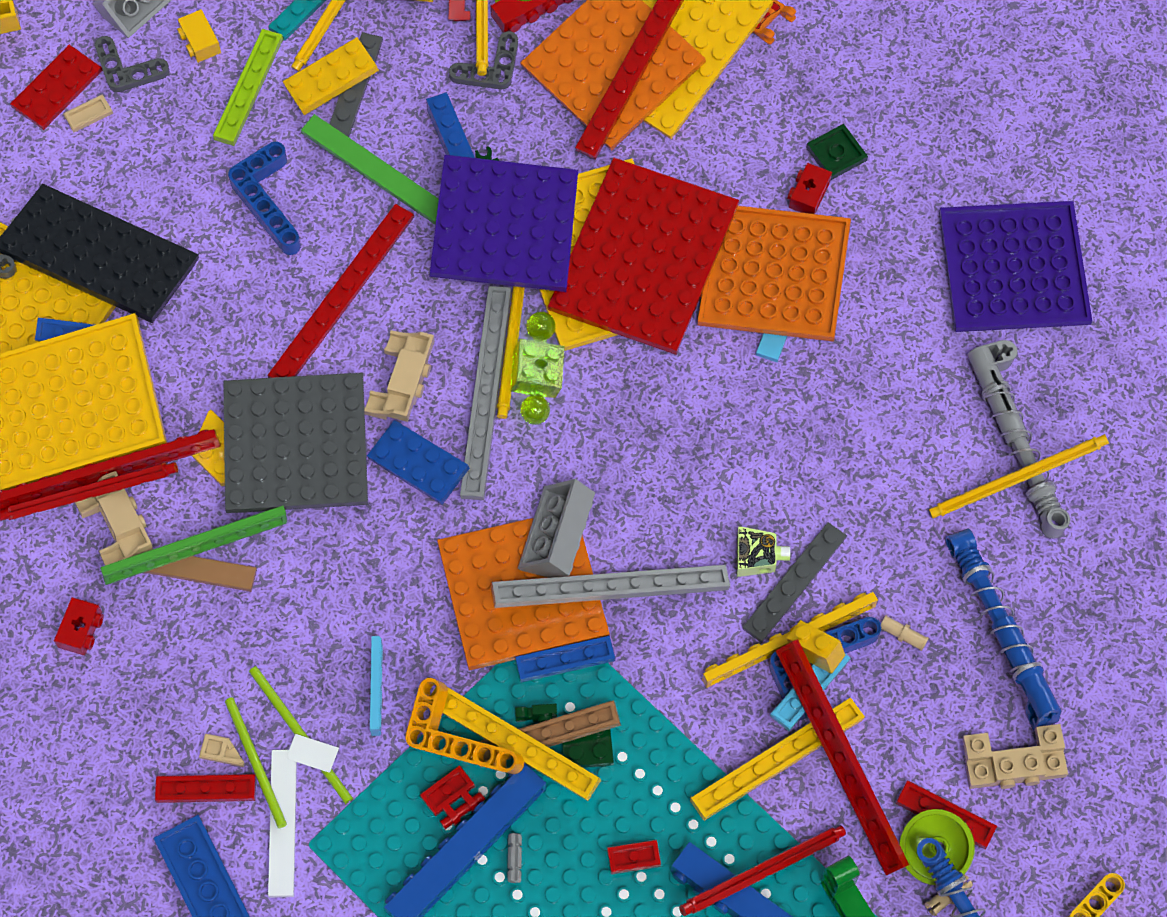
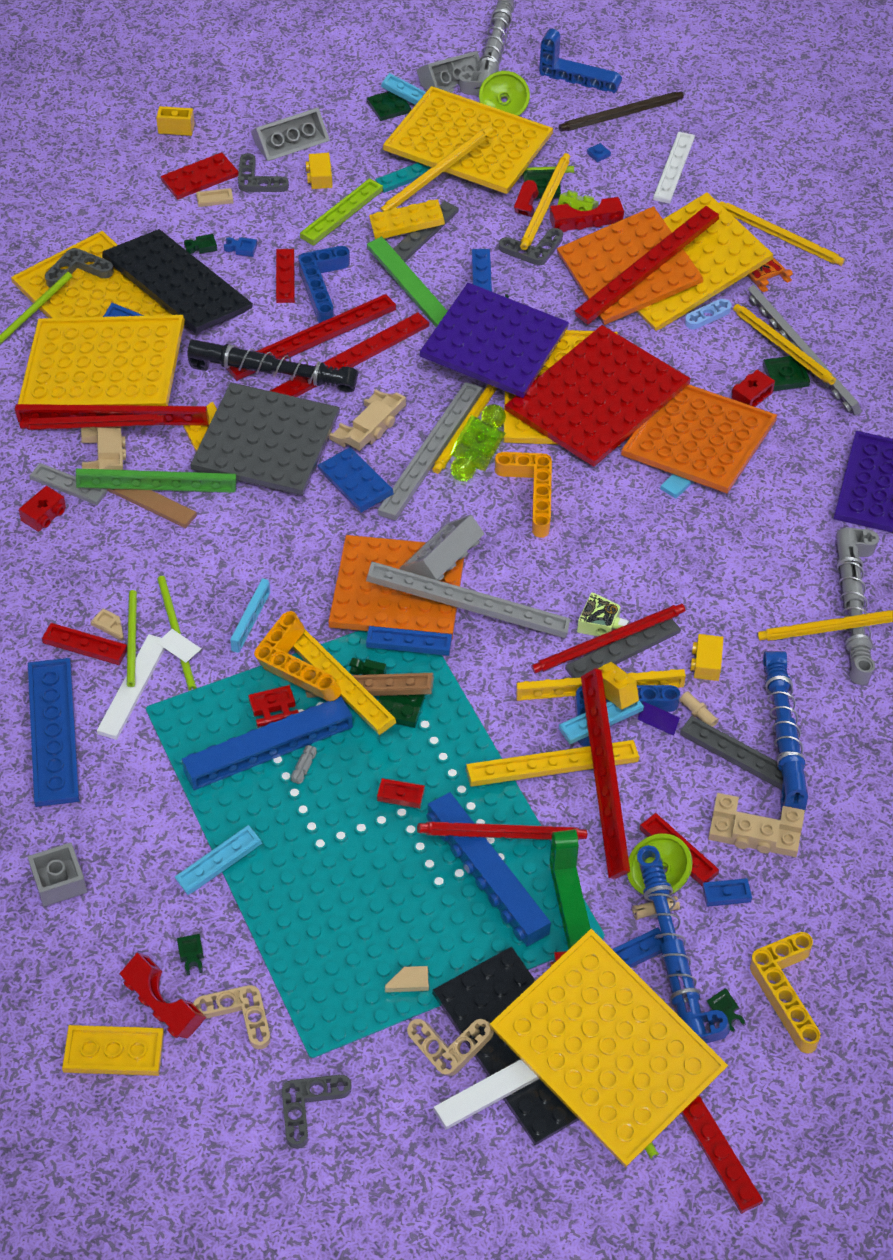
camera: 20 degrees right, 15 degrees down
(86, 579) = (66, 483): none -> light grey tile
(104, 186) = (203, 243): none -> dark green plate
(154, 176) = (243, 246): none -> blue plate
(207, 347) = (202, 353): none -> black piece
(219, 200) = (285, 276): none -> red plate
(286, 280) = (324, 331): none -> red plate
(625, 402) = (540, 469): none -> light orange beam
(722, 88) = (710, 308): none -> light blue beam
(776, 577) = (608, 638): none -> red piece
(826, 117) = (784, 344): none -> yellow piece
(851, 120) = (789, 333): none -> light grey plate
(868, 660) = (658, 718): none -> dark purple sticker
(889, 563) = (708, 657): none -> yellow brick
(958, 672) = (733, 751): none -> dark grey plate
(1013, 848) = (727, 892): none -> blue plate

